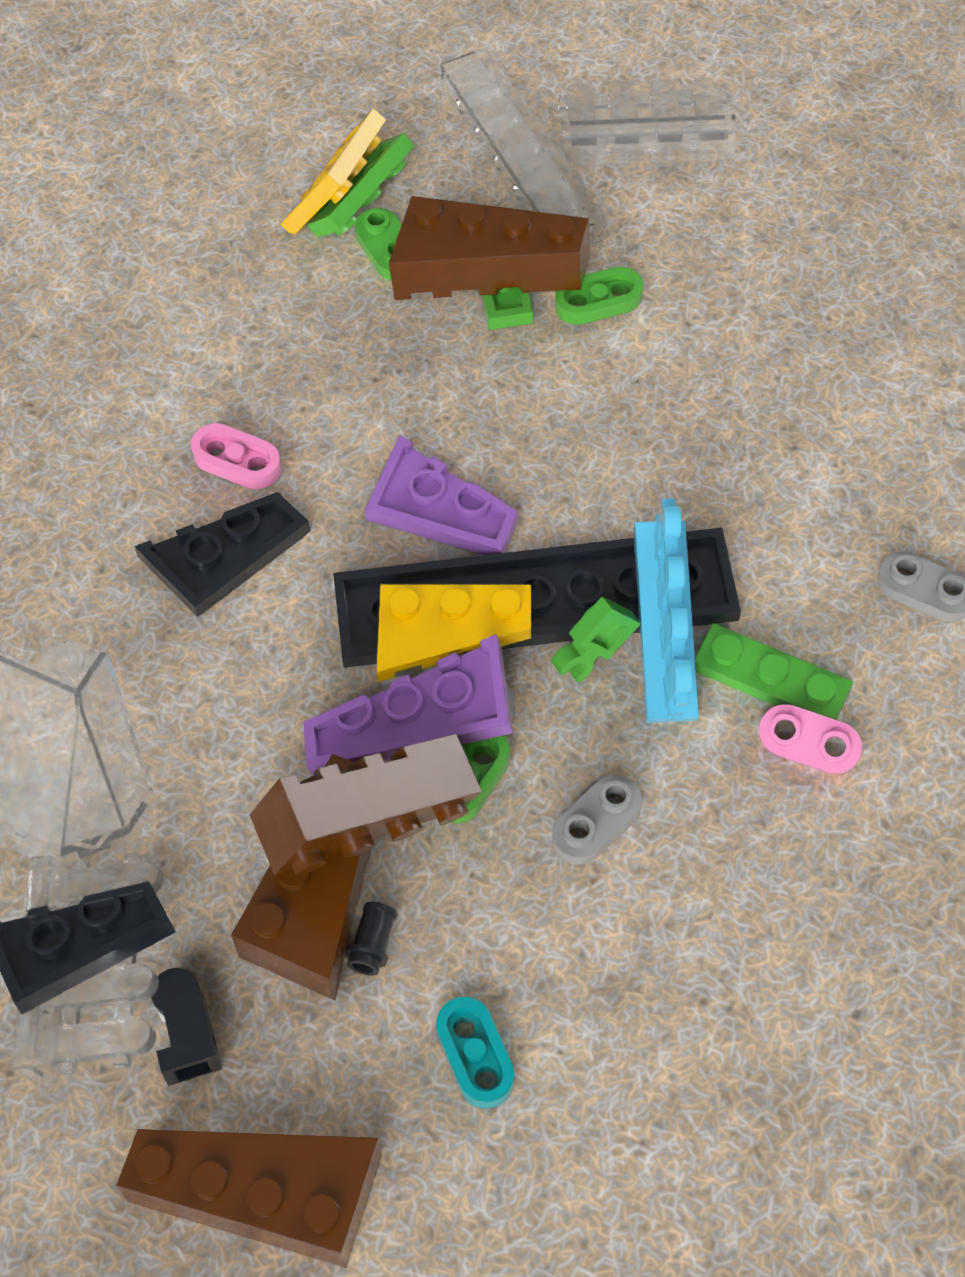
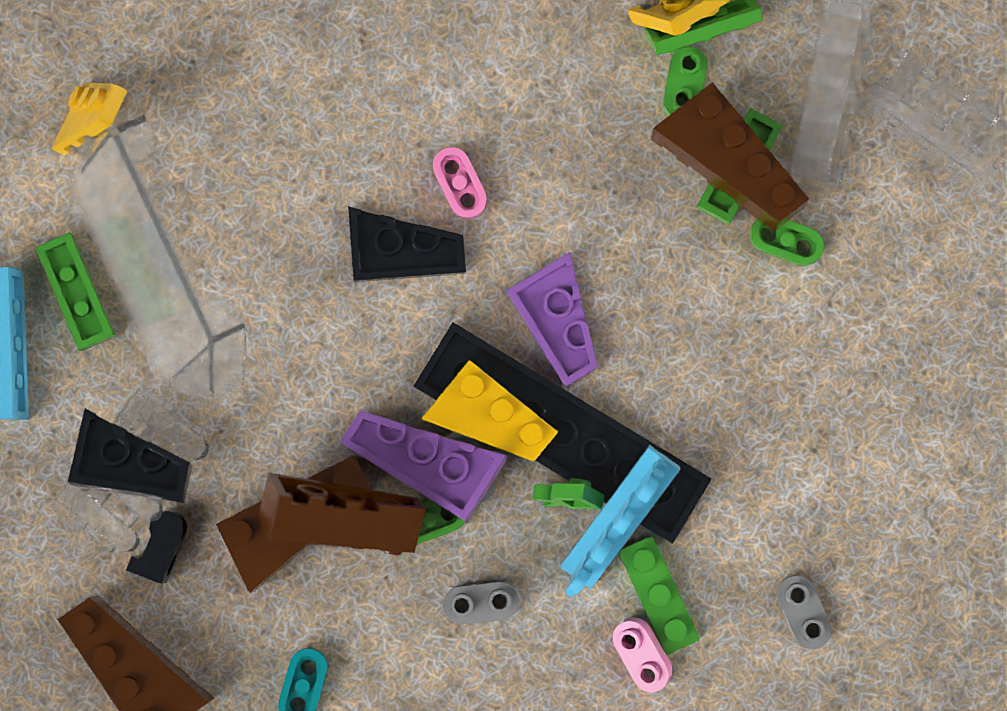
camera: 35 degrees right, 25 degrees up
(368, 950) = (298, 575): black pin -> none

